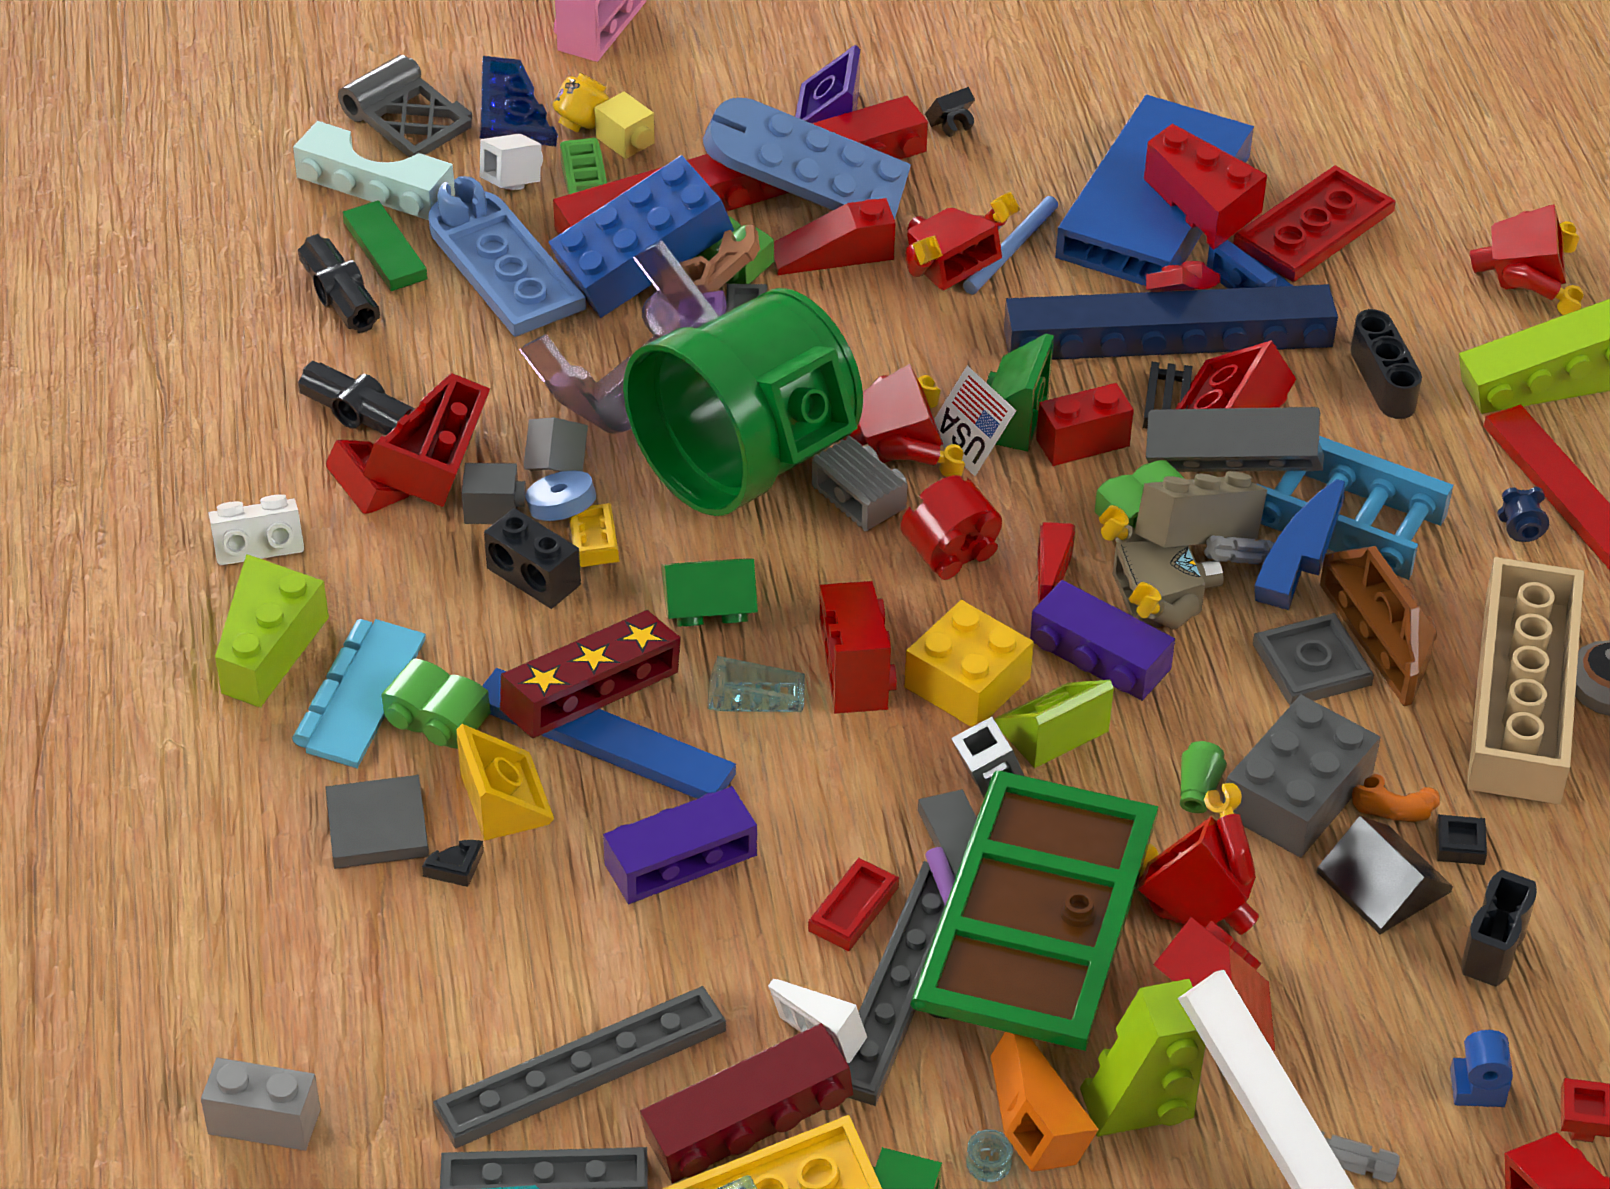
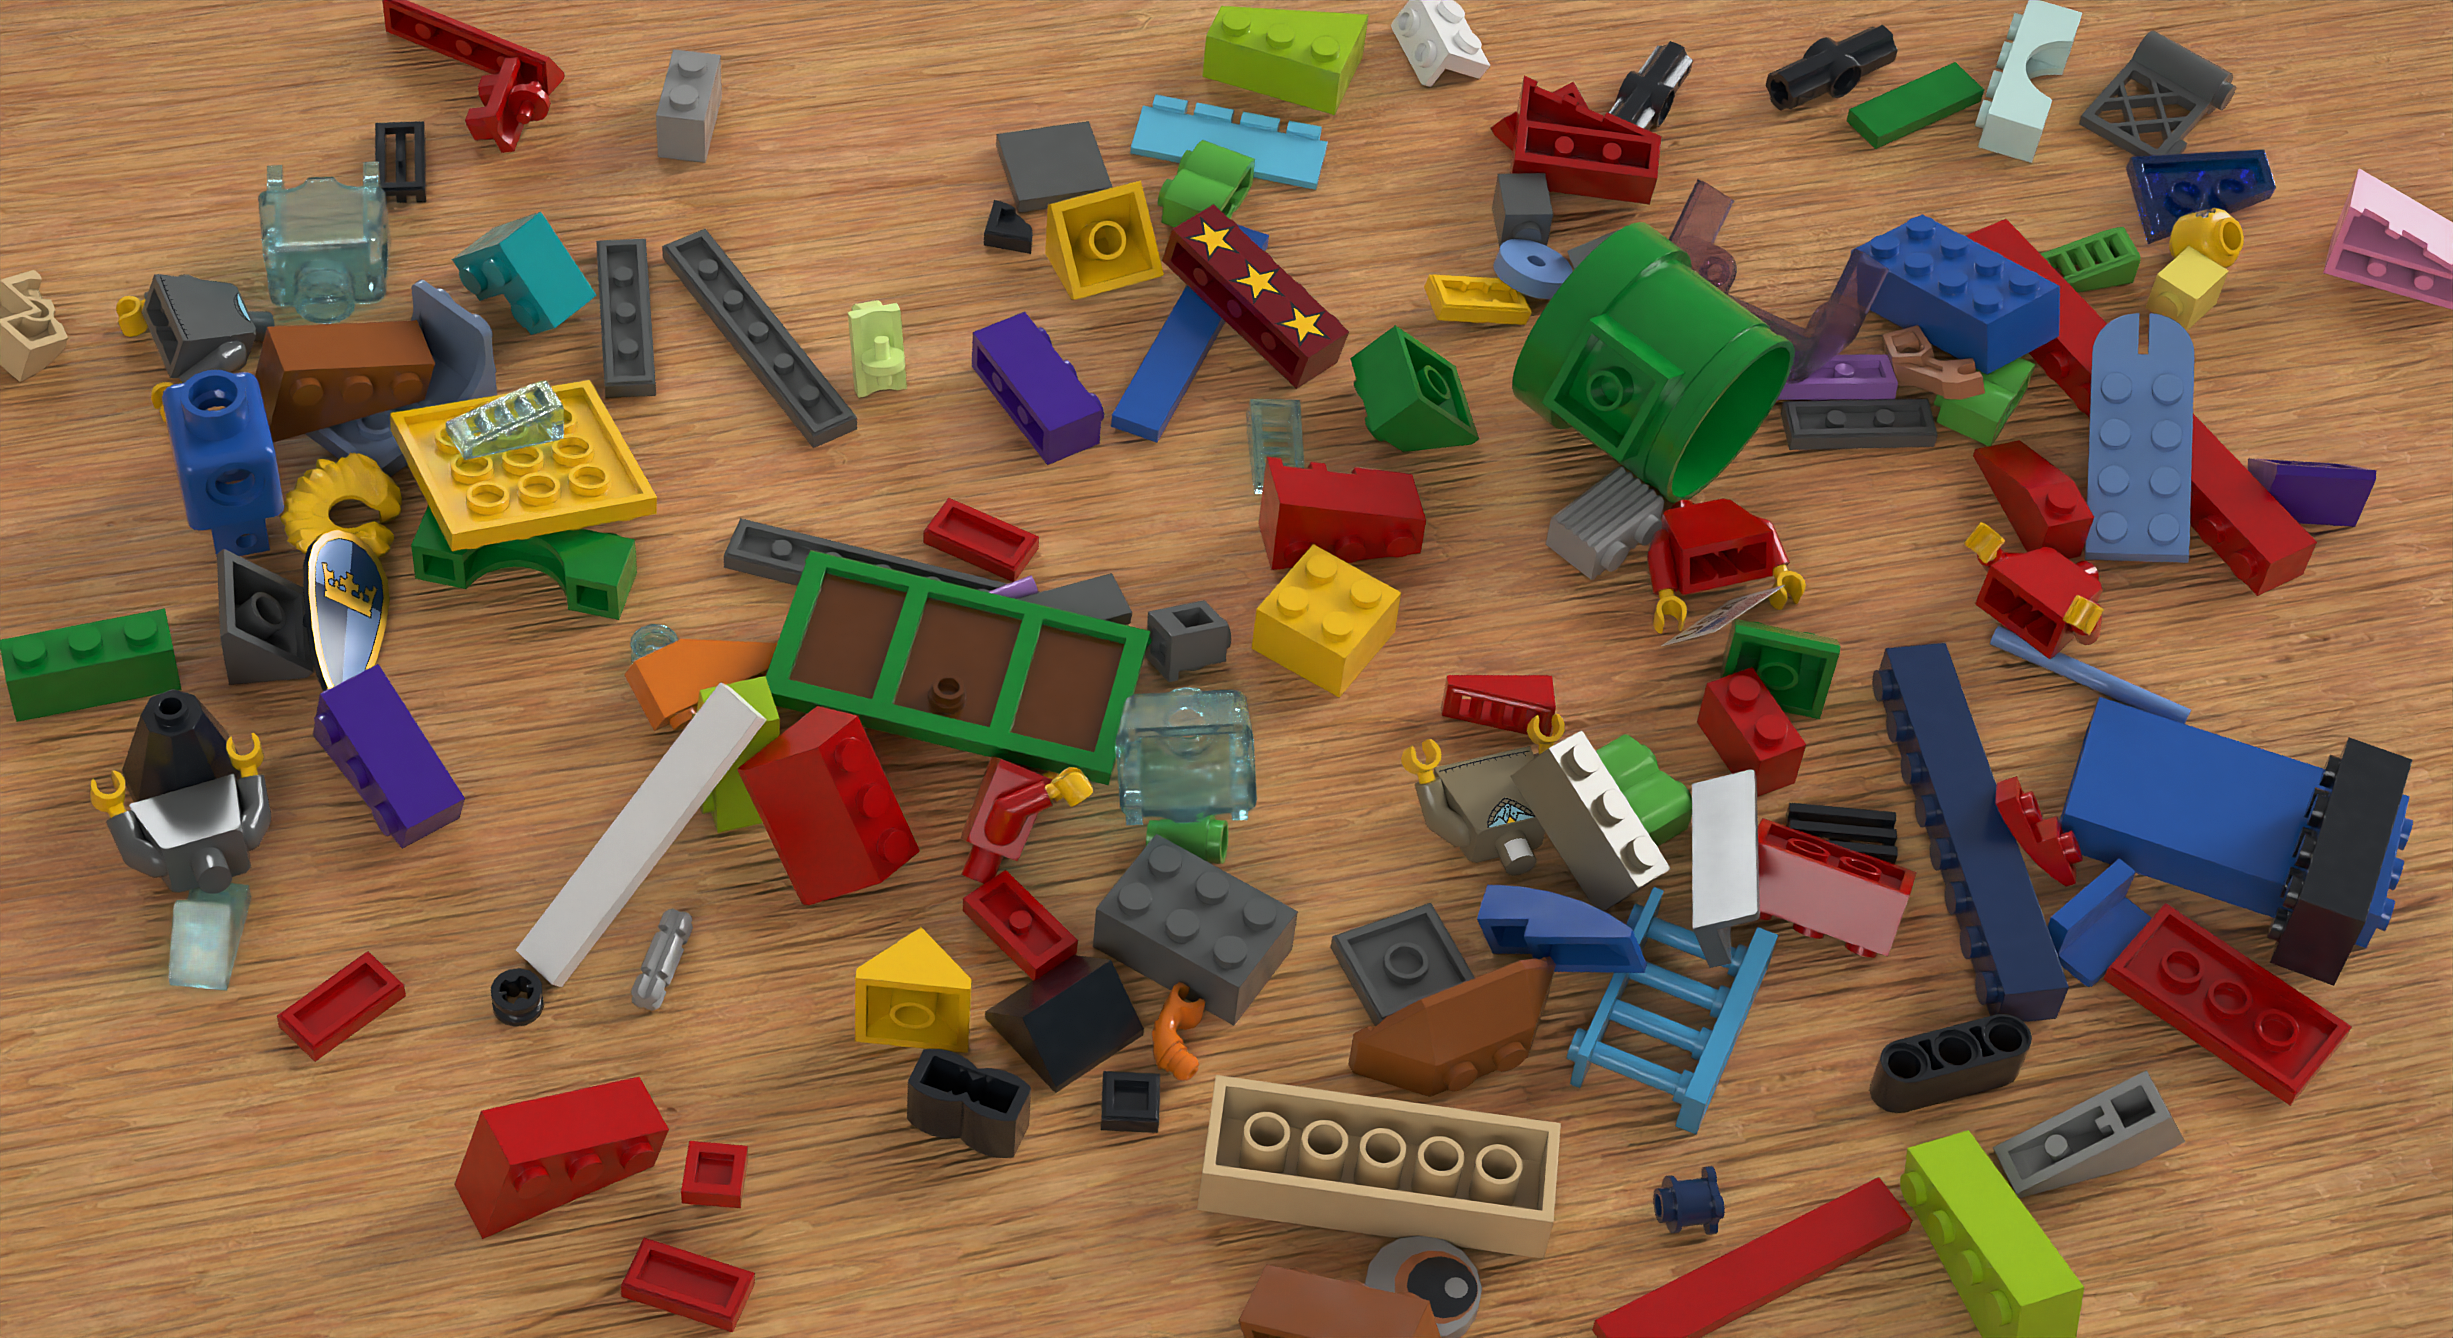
camera: 80 degrees right, 5 degrees up
(501, 258) = (1941, 178): medium blue plate -> none
(510, 161) = (2076, 186): white brick -> none
(532, 558) = (1425, 245): black brick -> none
(636, 952) = (876, 347): none -> yellowish green hips
(747, 1103) = (697, 445): dark red brick -> none
(808, 1008) = (801, 496): white slope -> none
(950, 108) = (2330, 603): black tile -> none
(952, 526) = (1533, 595): red brick -> none
(1059, 720) = (1278, 714): lime slope -> none
(1102, 640) = (1367, 770): dark purple brick -> none
(1142, 747) = (1186, 775): none -> clear light blue piece
(1204, 182) = (2198, 832): red wedge -> none
(1237, 549) = (1551, 873): light grey axle -> none
(1242, 114) = (2338, 860): none -> black brick
(1298, 894) = (1019, 925): none -> red plate
(1397, 953) = (913, 997): none -> yellow slope
(1443, 298) = (2091, 1139): none -> light grey slope
(1485, 1072) = (767, 1073): blue leg -> none
(1530, 255) = (2223, 1244): red torso -> none

